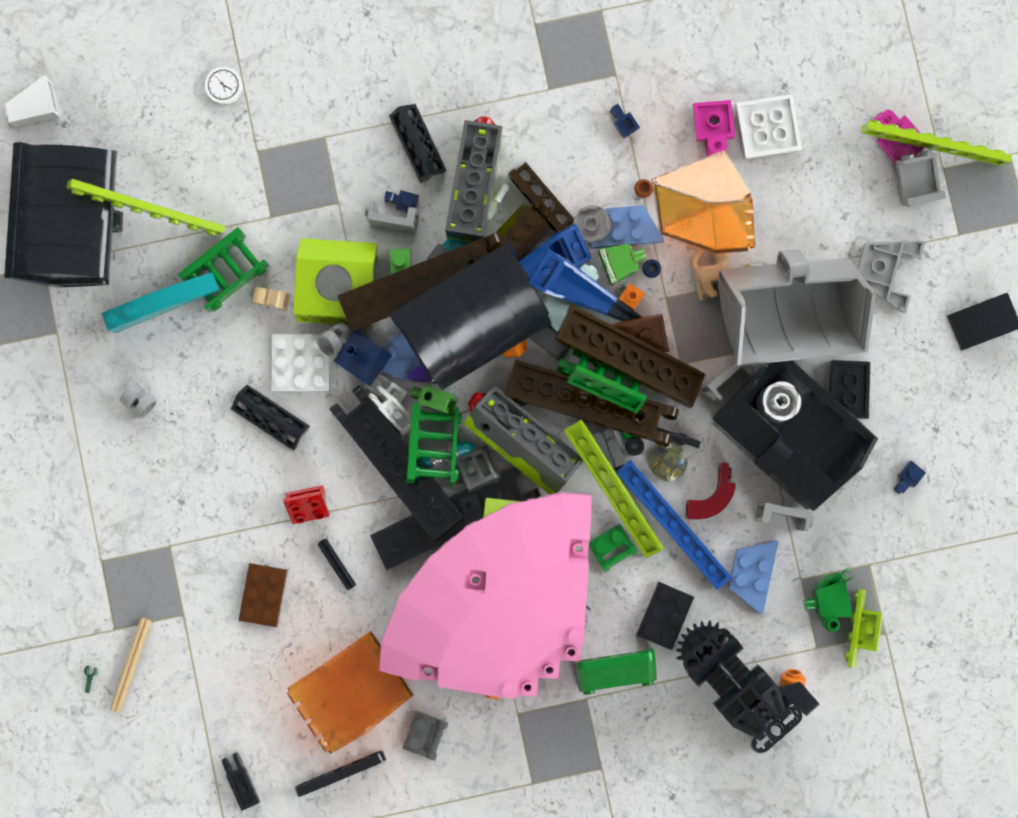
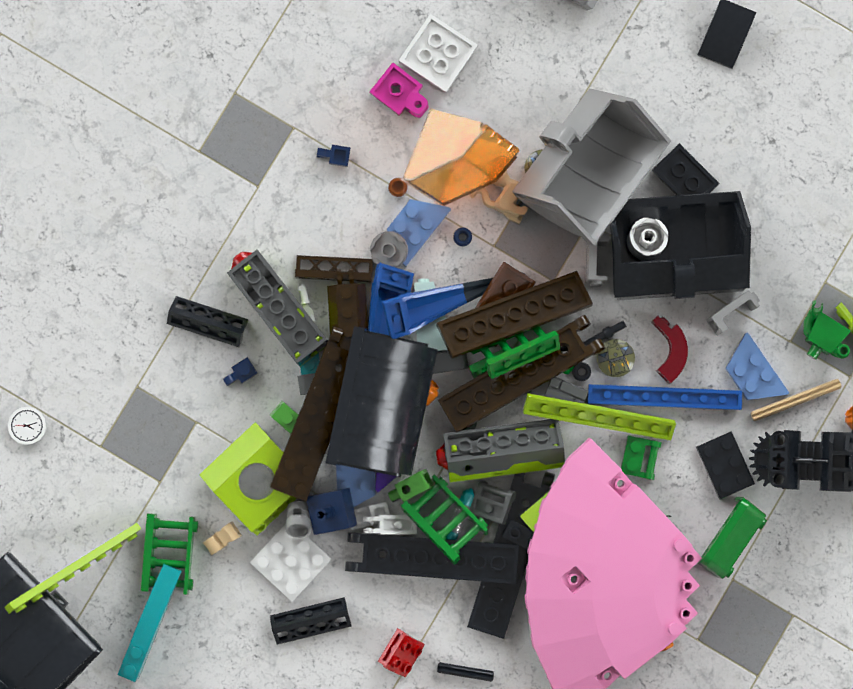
camera: 50 degrees left, 0 degrees up
(391, 222) = (264, 386): light grey panel -> none
(620, 262) = (437, 255): bright green torso -> none
(631, 296) = (470, 271): orange brick -> none
(762, 623) = (796, 400): none -> tan axle
(879, 267) = (617, 71): light grey wing -> none
(910, 476) = (788, 191): dark blue plate -> none

